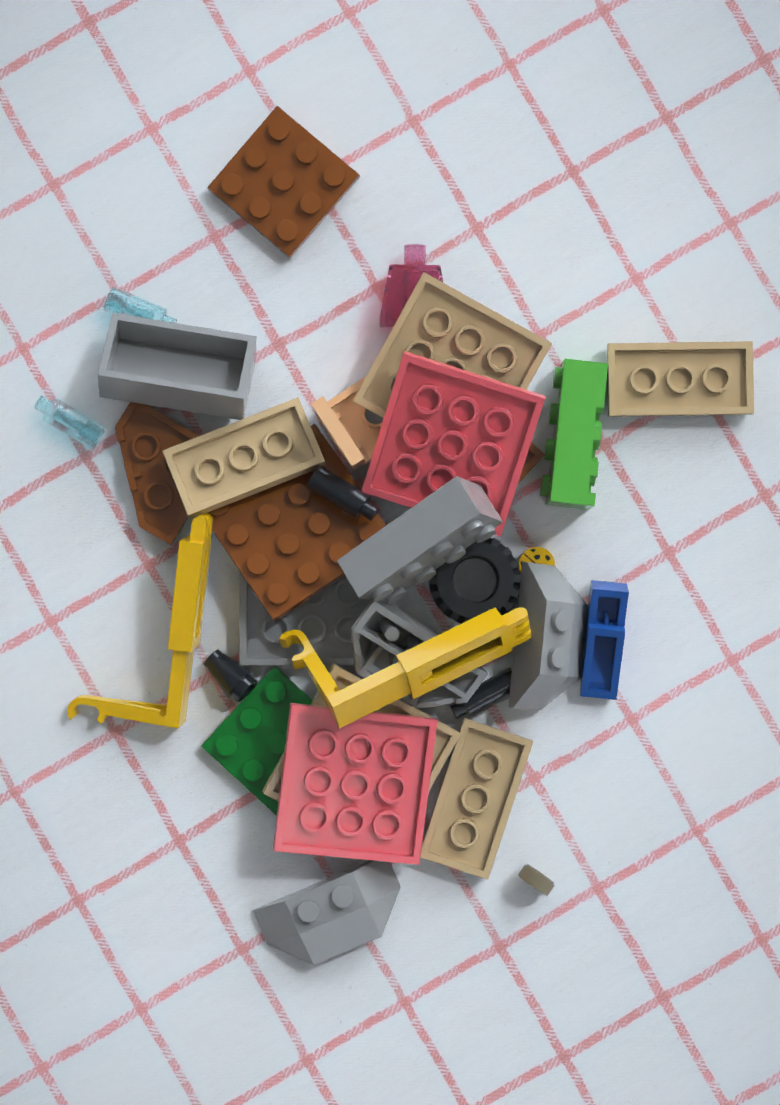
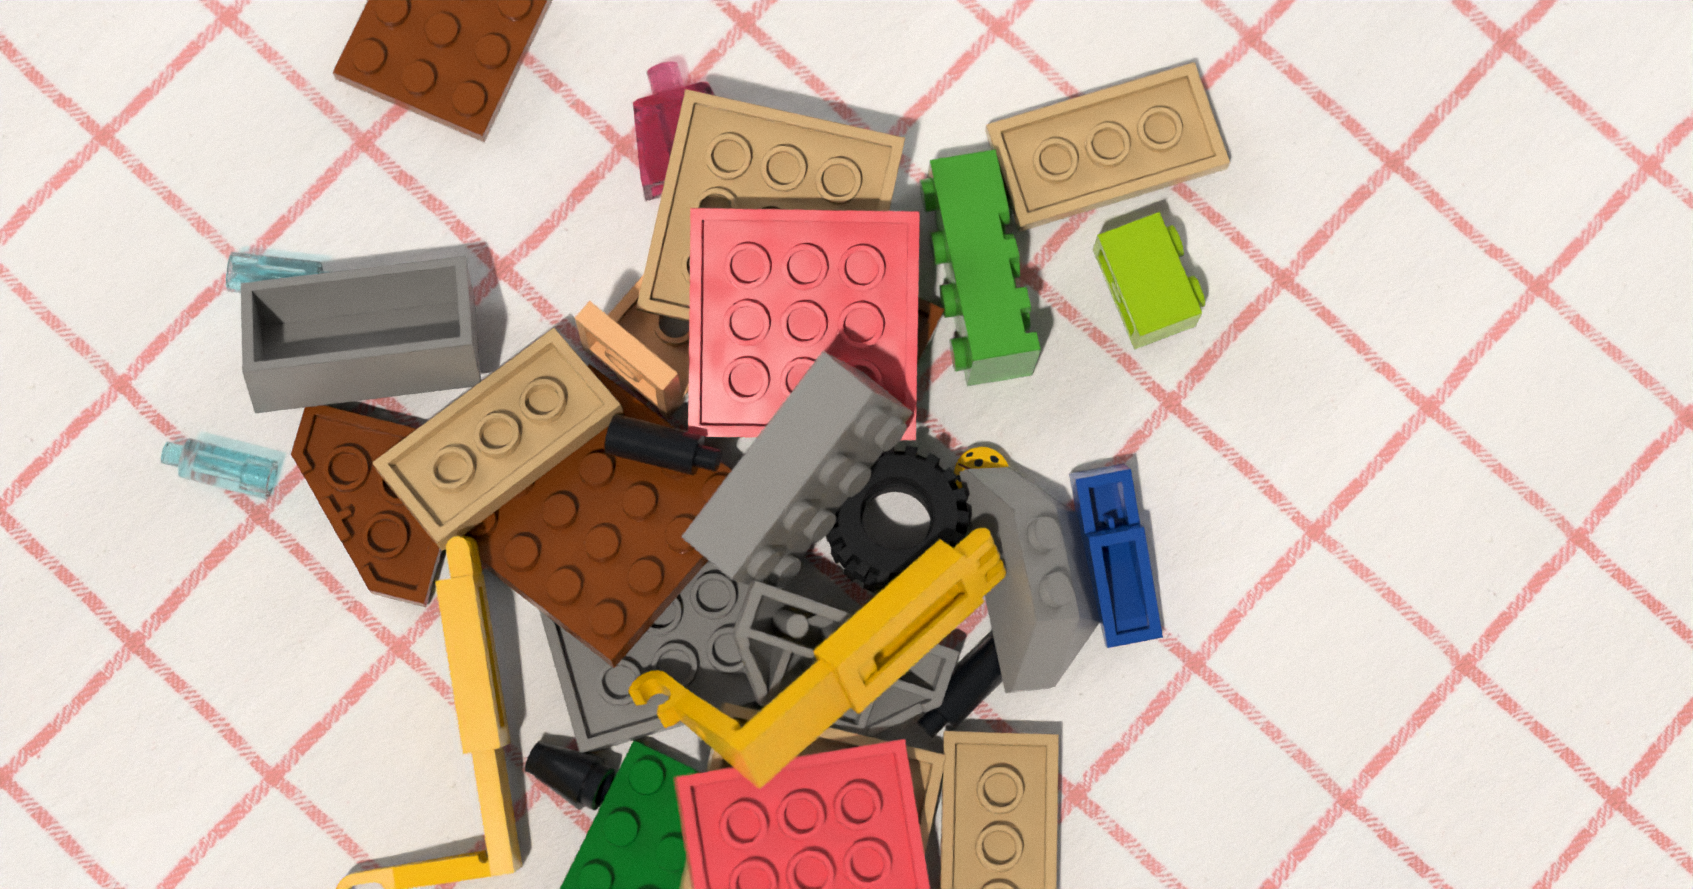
camera: 20 degrees left, 10 degrees down
(678, 474) = (1149, 279): none -> lime brick

